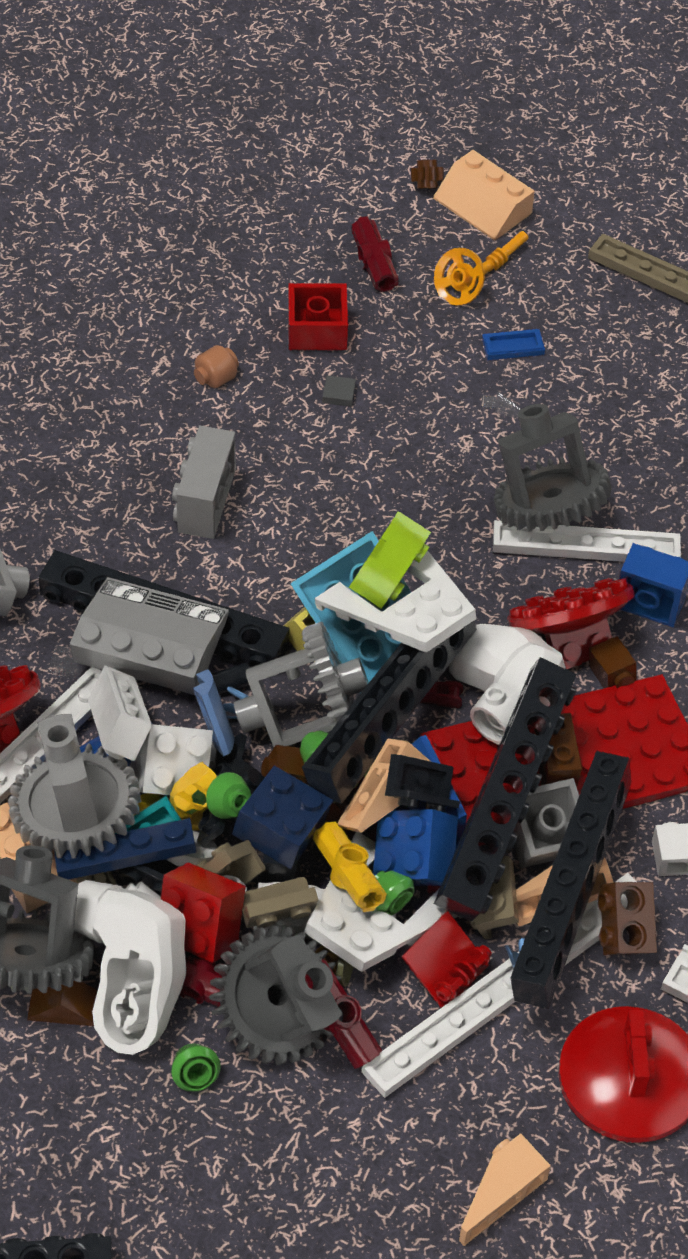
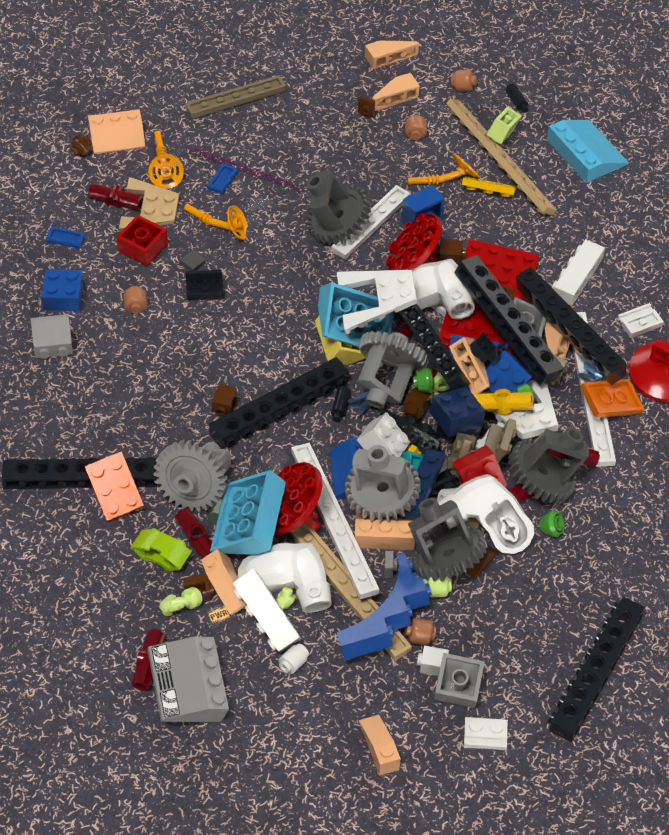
camera: 55 degrees left, 0 degrees up
(74, 315) = (51, 336): none -> light grey slope
(118, 548) = (224, 400): none -> reddish brown brick
(119, 714) = (345, 442): white brick -> none
(148, 634) = (299, 411): light grey slope -> none
(166, 286) = (62, 290): none -> blue brick
(190, 791) = (412, 436): yellow rock -> none
(204, 482) = (217, 340): light grey brick -> none
(214, 712) = (369, 406): medium blue slope -> none
(227, 795) = (431, 424): bright green cone -> none
(264, 246) = (65, 237): none -> blue tile
(302, 422) = (204, 284): none -> black bracket
(390, 560) = (353, 285): lime brick -> none
(402, 305) = (158, 203): none -> tan wing
(434, 392) = (234, 221): none -> light orange dish
(446, 960) = (568, 400): red hinge -> none
(504, 1029) = (612, 400): none -> orange plate
(547, 356) = (241, 166): none -> magenta piece
(636, 918) = (598, 321): reddish brown brick -> none

